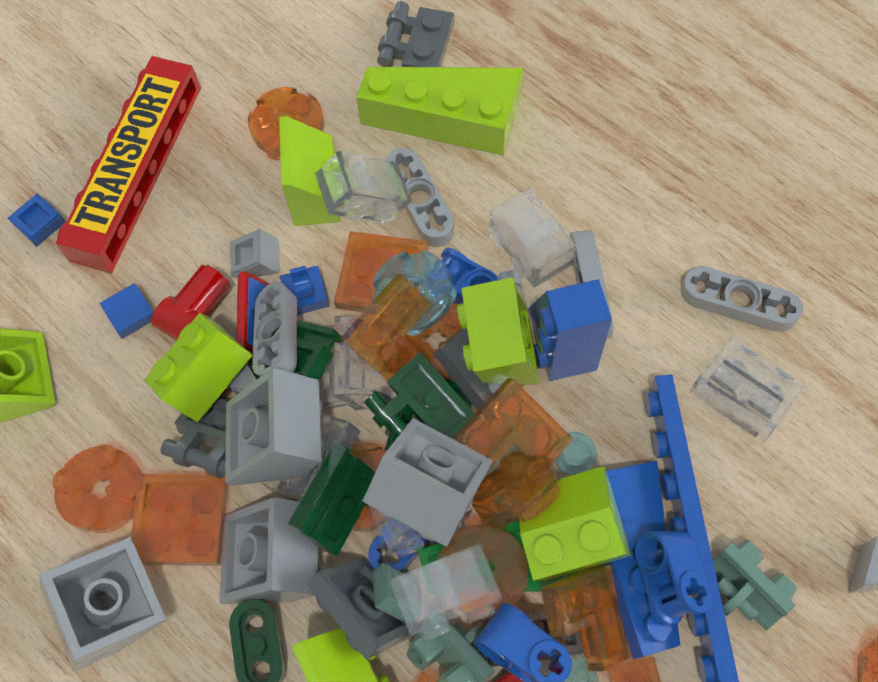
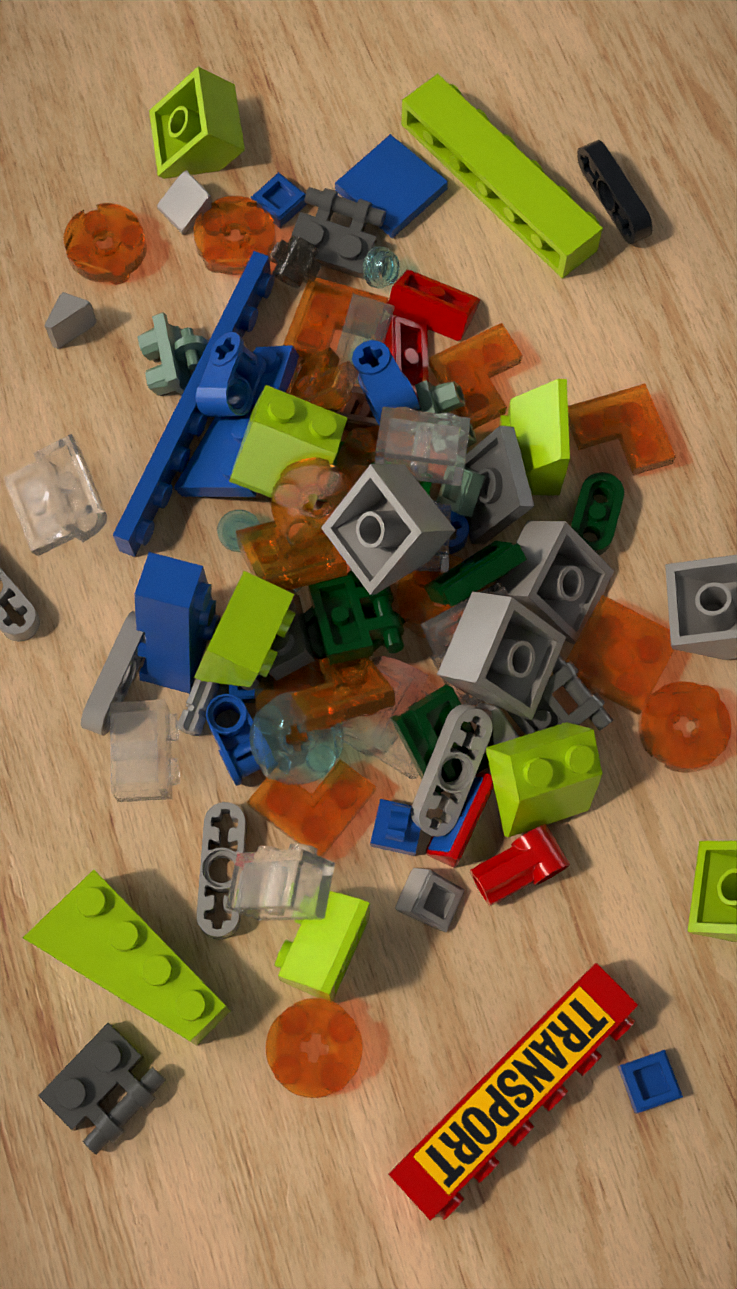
camera: 155 degrees left, 5 degrees up
(127, 310) = (588, 904): blue tile -> none

